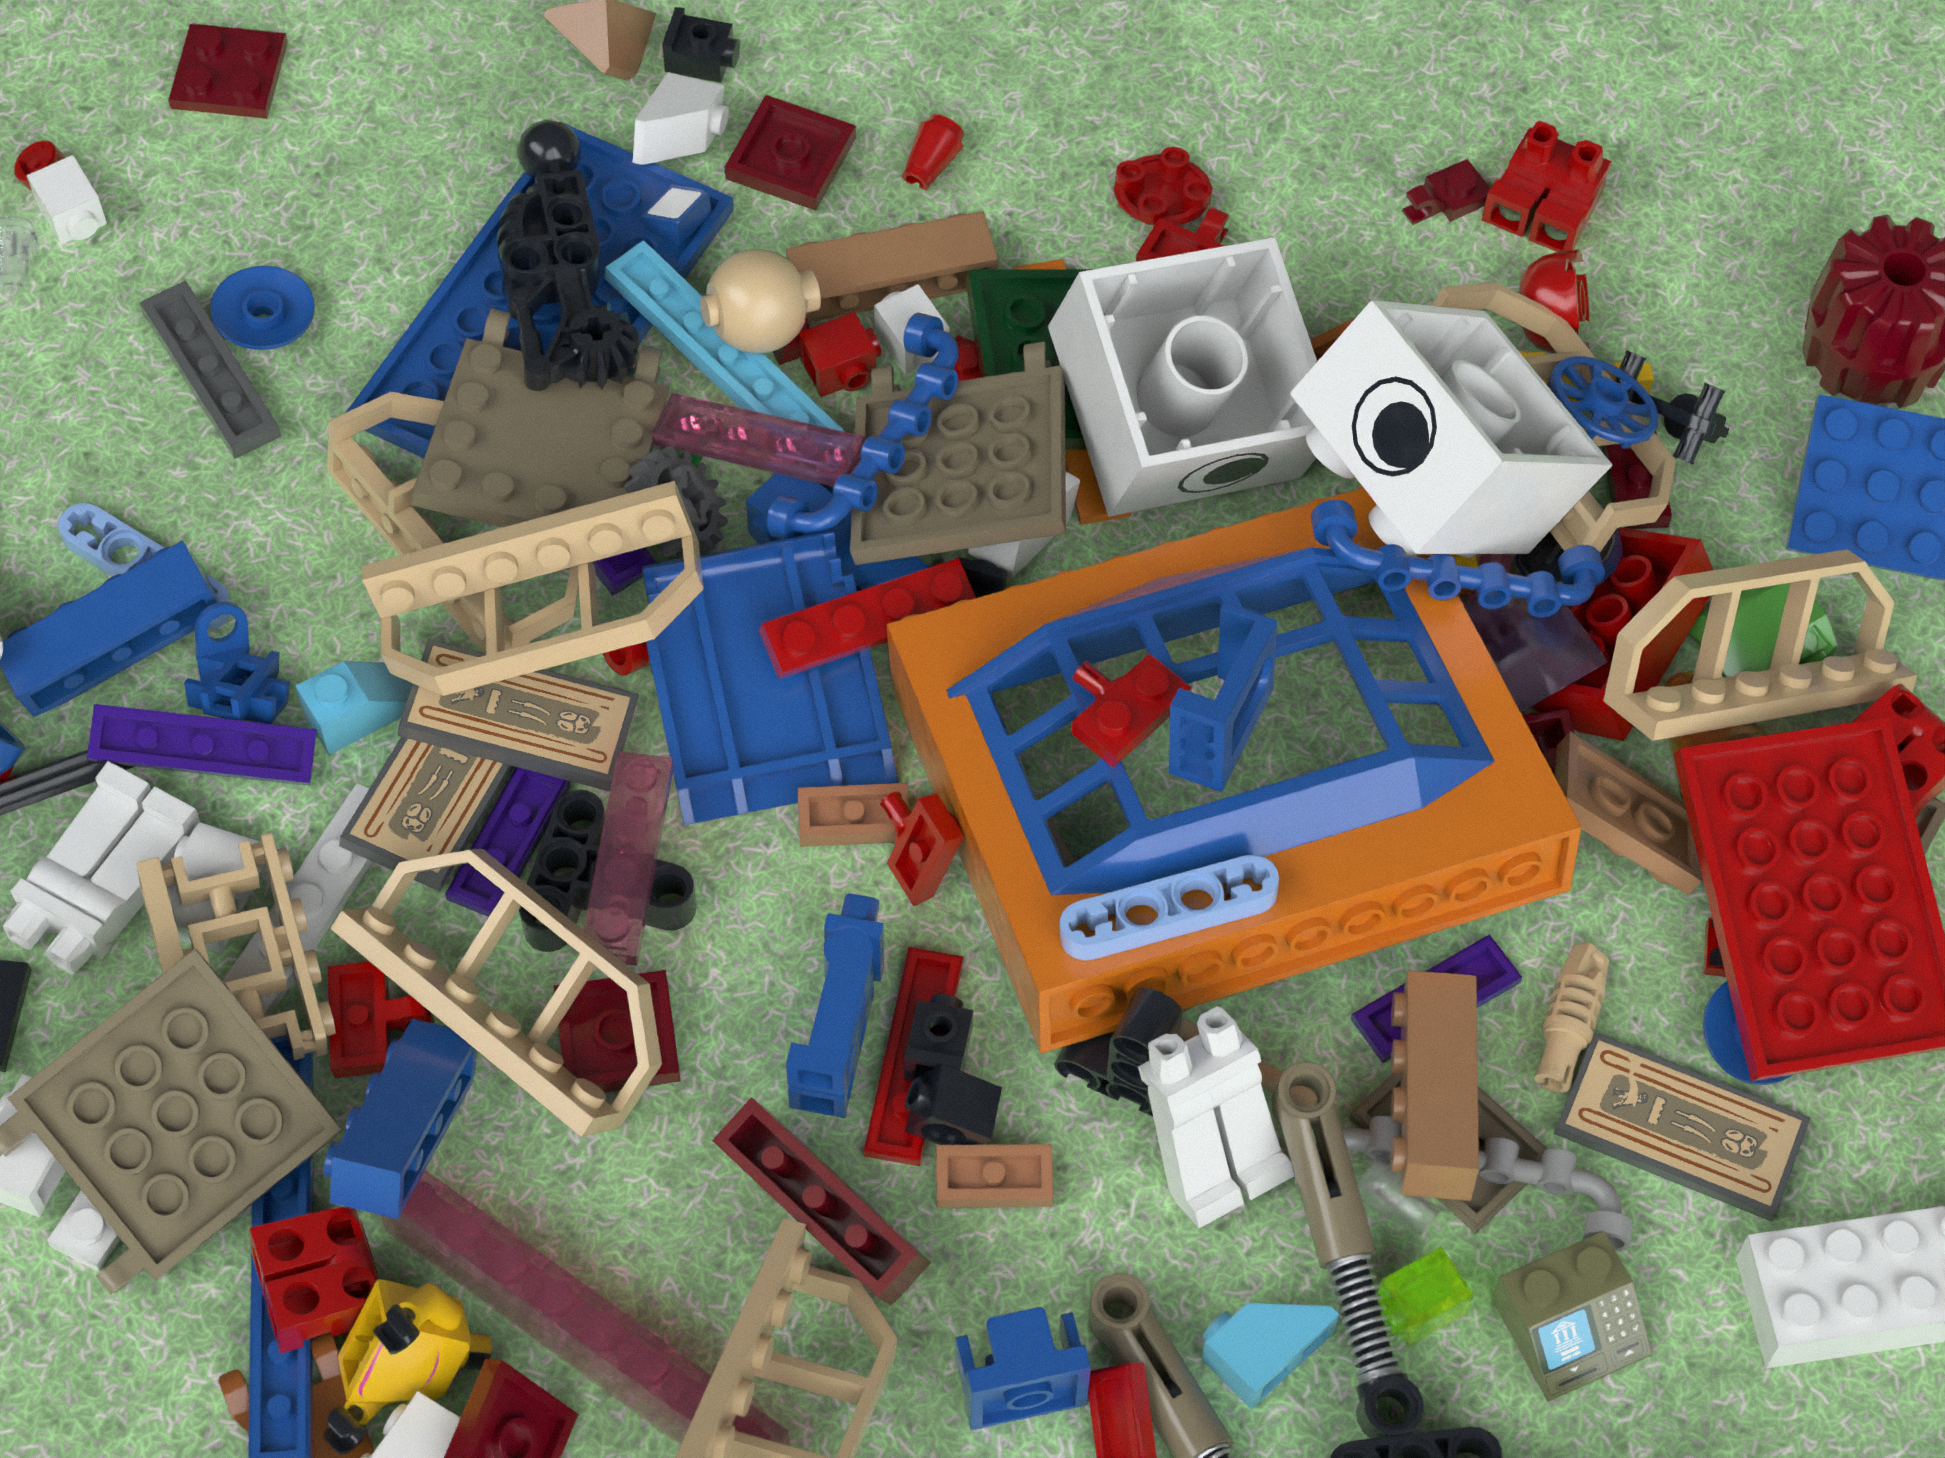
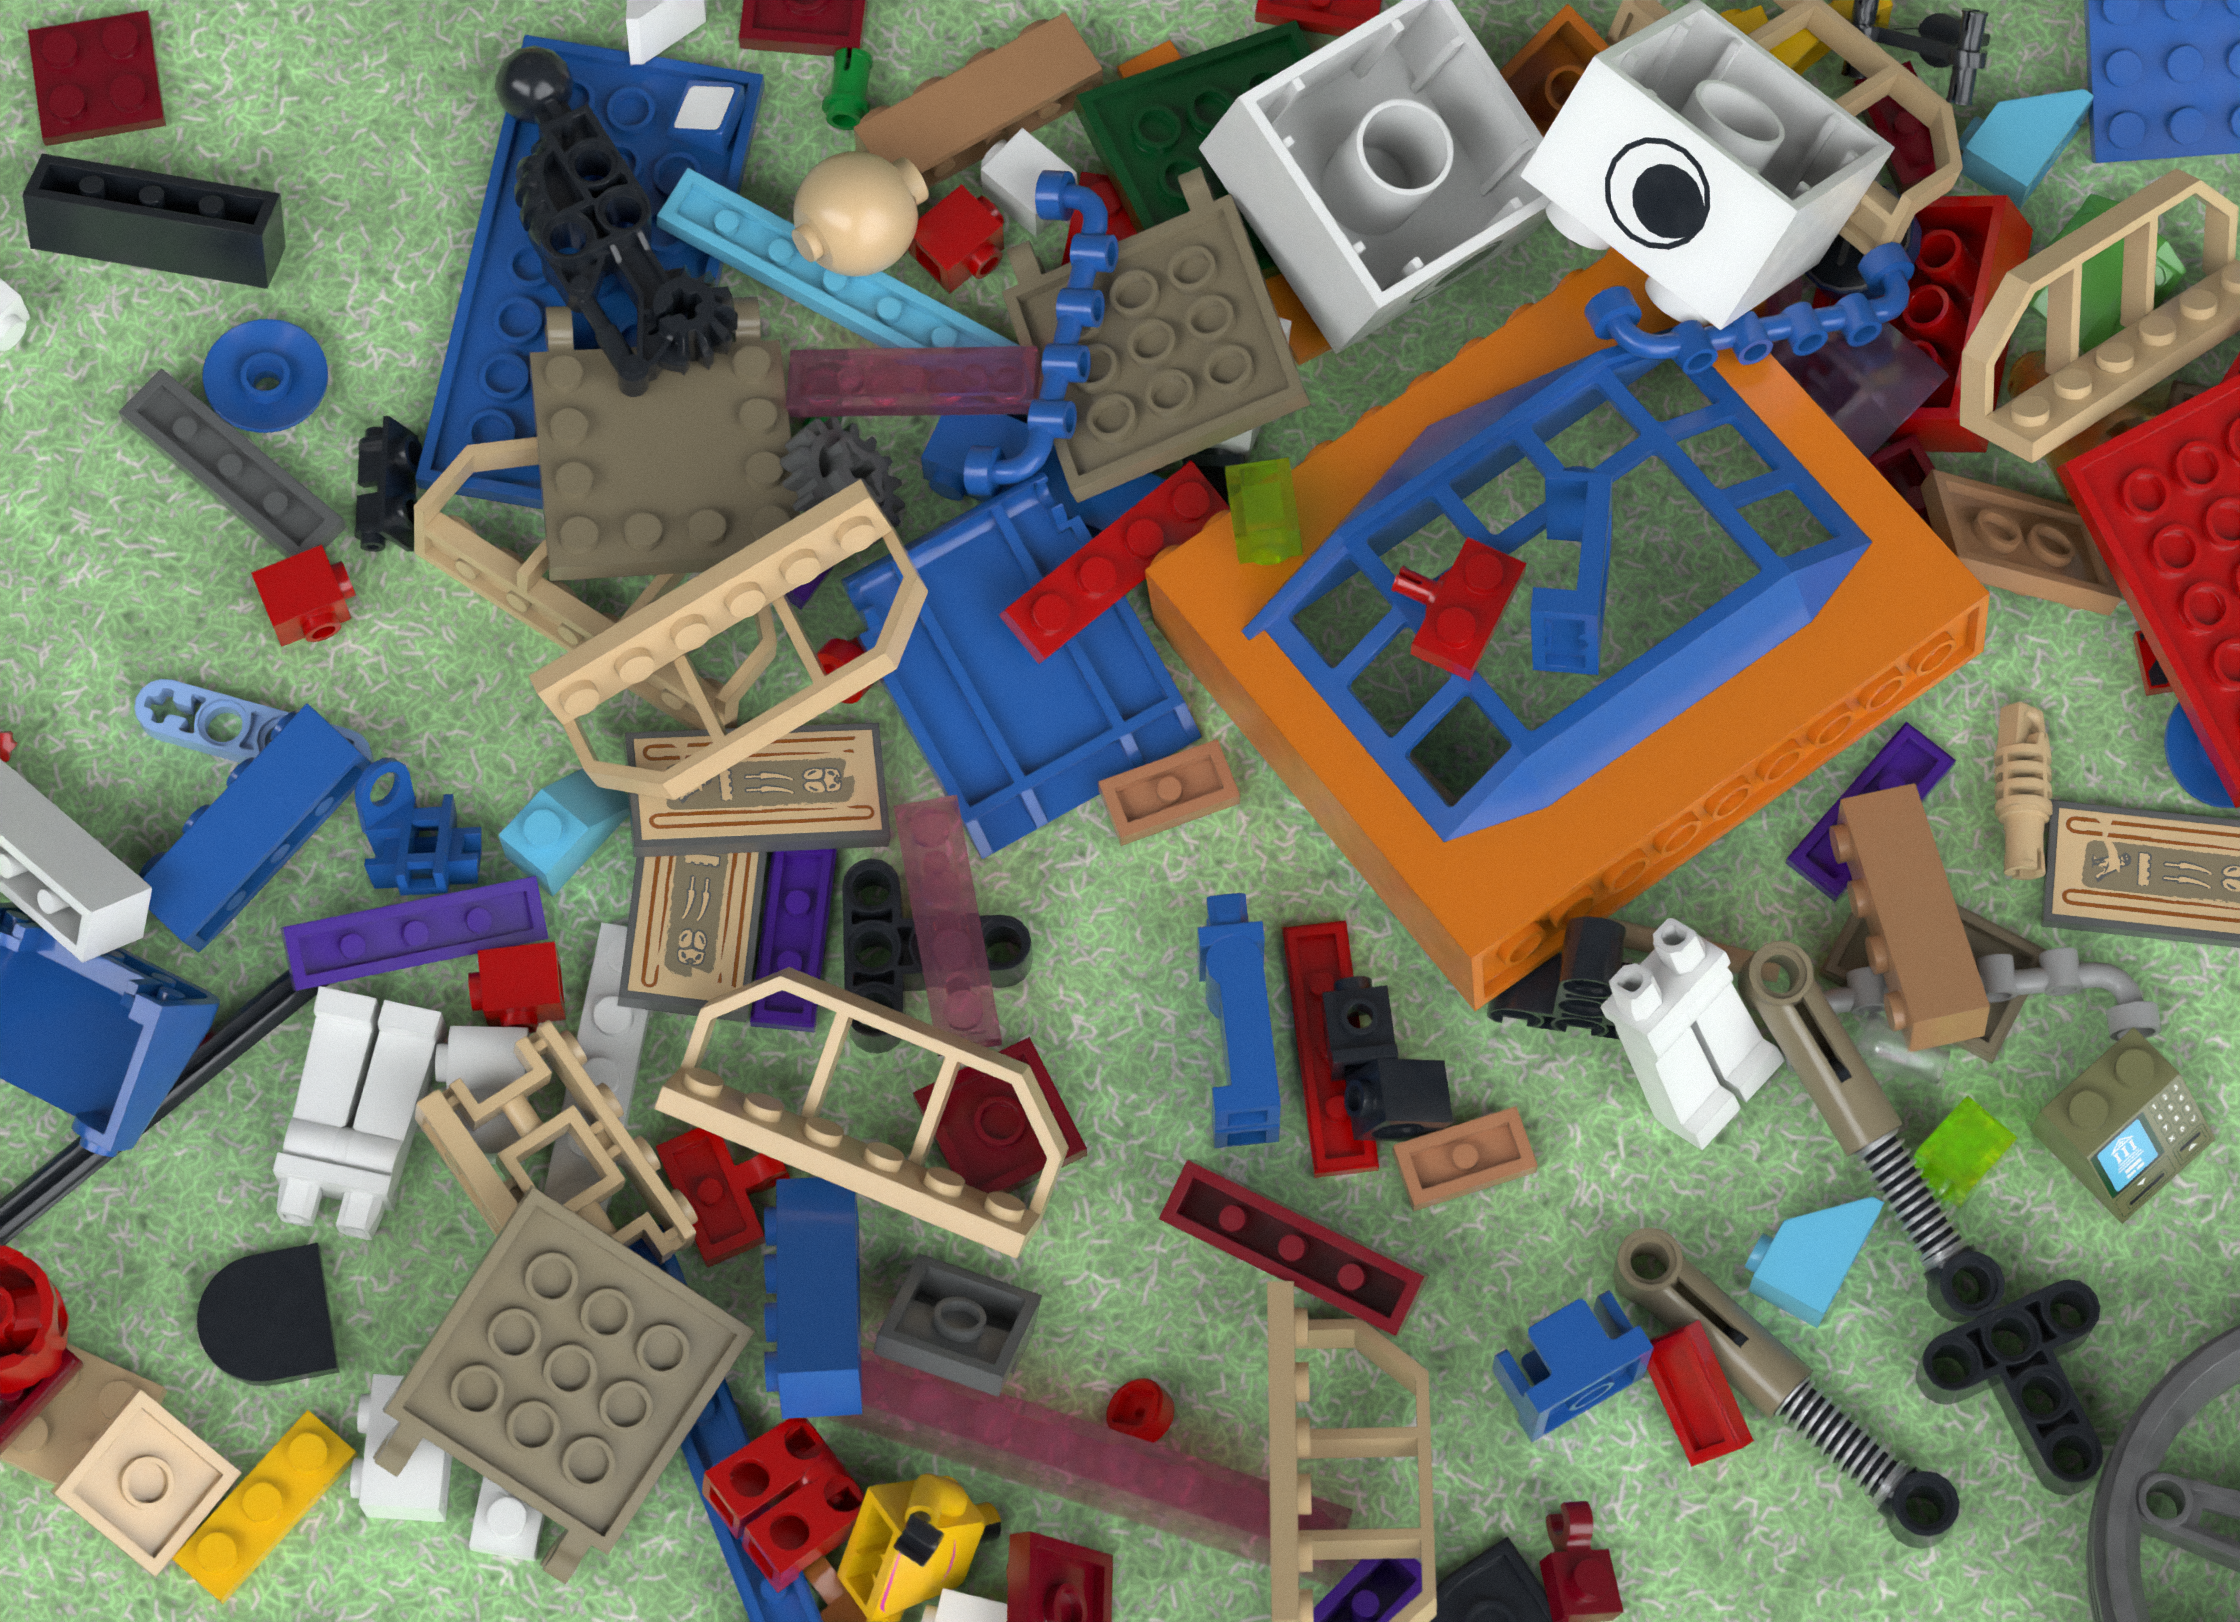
camera: 15 degrees left, 10 degrees up
(224, 174) = (154, 220): none -> black brick
(224, 473) = (305, 596): none -> red brick
(271, 805) = (518, 986): none -> red brick
(328, 398) = (390, 462): none -> black hinge
(515, 1179) = (958, 1325): none -> dark grey plate
(646, 1299) = (1141, 1410): none -> red tile
(797, 225) = (848, 89): none -> green pin
(923, 844) = (1263, 809): red plate -> none
(996, 600) = (1263, 511): none -> clear neon green brick
(1165, 898) = (1574, 814): light blue beam -> none
(1604, 400) = (1855, 59): blue wheel -> none
(1732, 512) = (2021, 141): none -> medium azure slope

